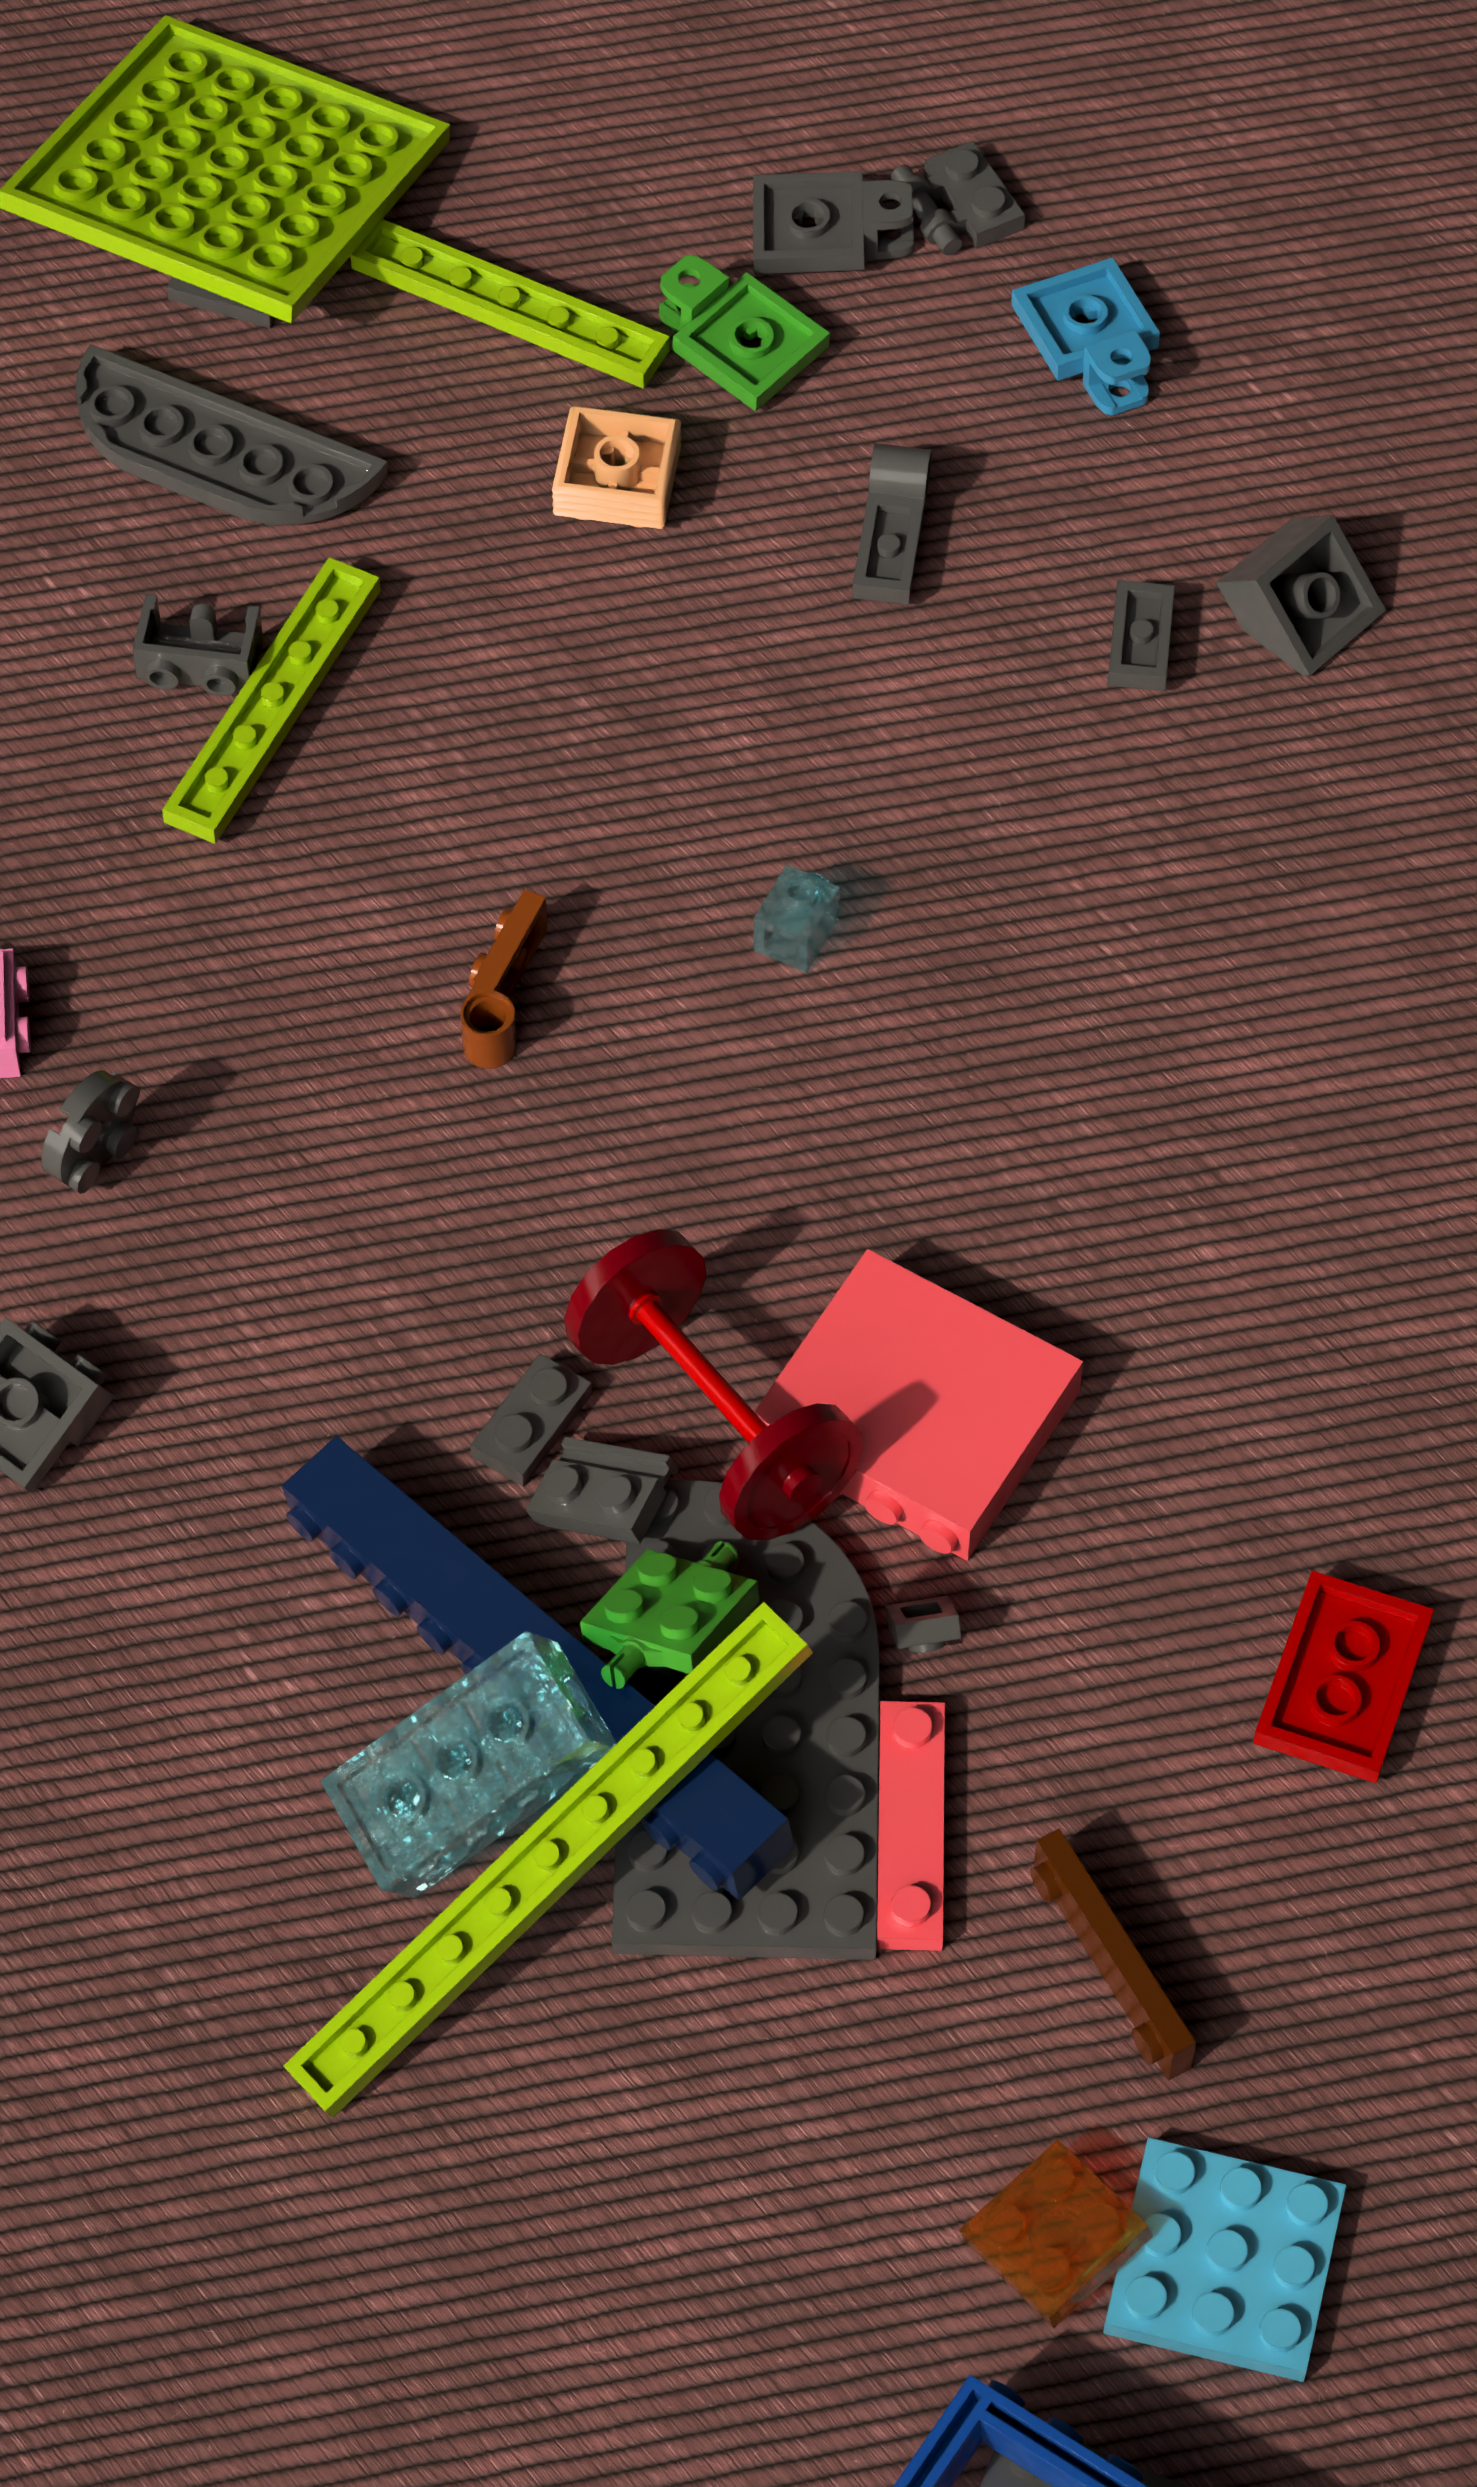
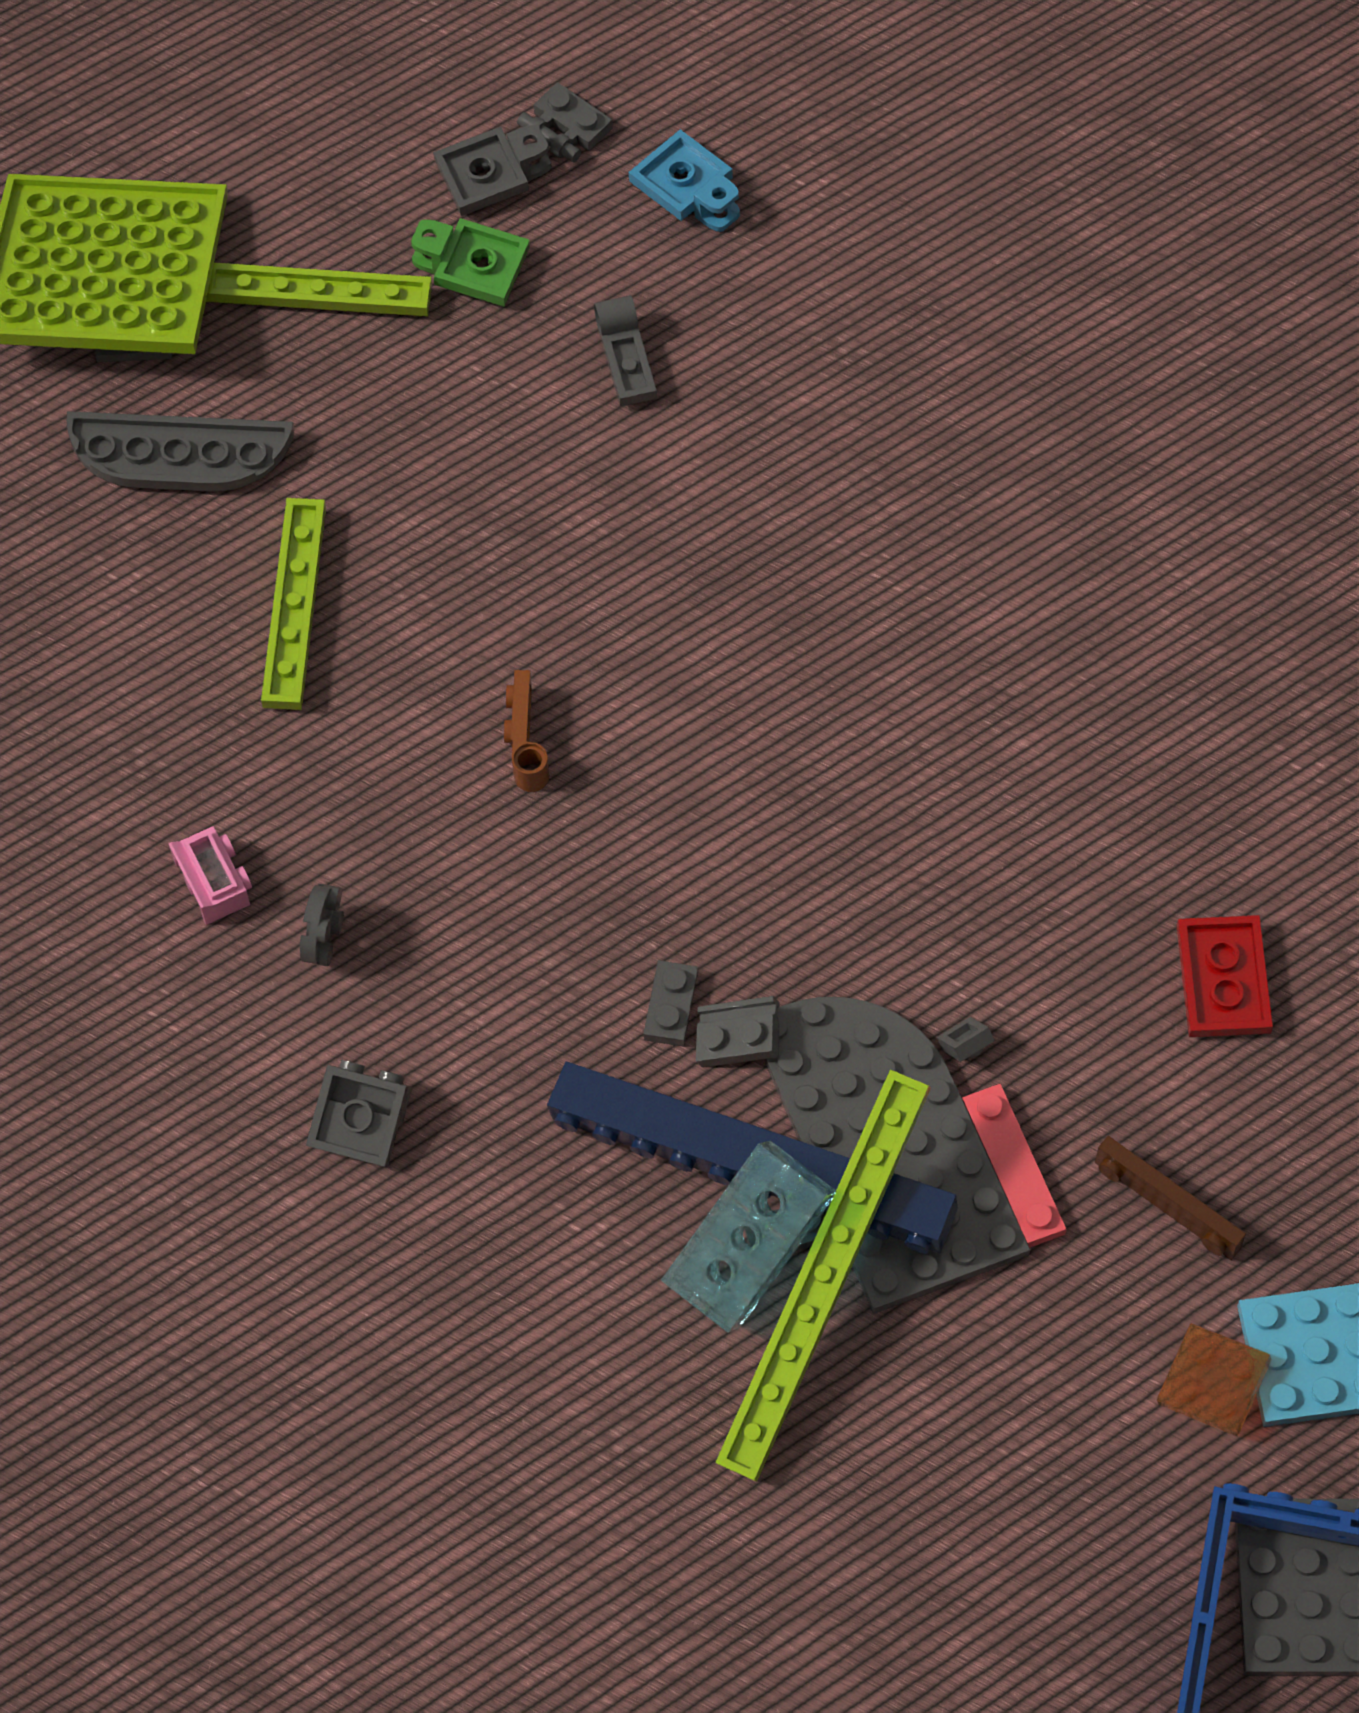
camera: 20 degrees left, 5 degrees up
(197, 653) = (232, 589): dark grey window -> none
(616, 467) = (444, 354): light nougat brick -> none
(639, 1301) = (710, 905): dark red piece -> none
(669, 1612) = (821, 1094): bright green plate -> none
(796, 918) = (685, 625): clear light blue brick -> none
(942, 1398) = (898, 906): coral brick -> none
(1141, 635) = (808, 368): dark grey plate -> none
(1302, 593) = (893, 306): dark grey slope -> none

